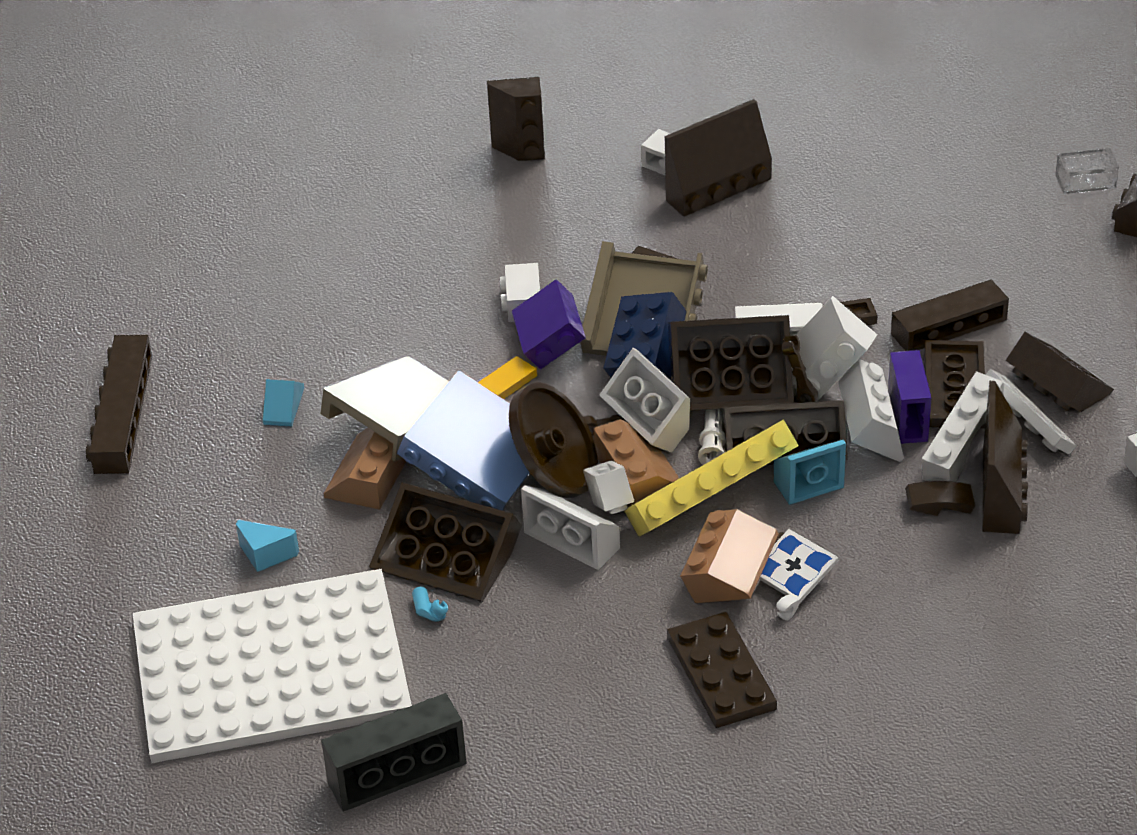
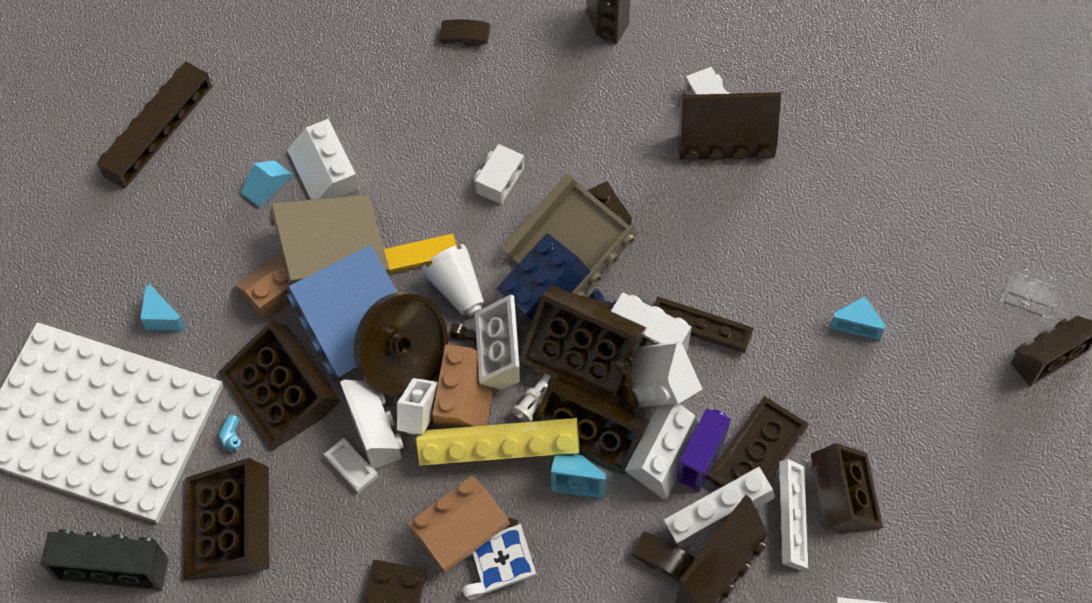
camera: 30 degrees right, 20 degrees up
(330, 353) = (322, 162): none -> white slope
(380, 206) = (464, 30): none -> dark brown slope
(488, 670) = (227, 521): none -> dark brown slope
(548, 324) = (489, 220): dark purple brick -> none
(549, 368) = (455, 279): none -> white cone
(575, 574) = (351, 465): none -> white tile
(950, 315) = (803, 380): dark brown brick -> none
(960, 252) = (859, 319): none -> medium azure slope

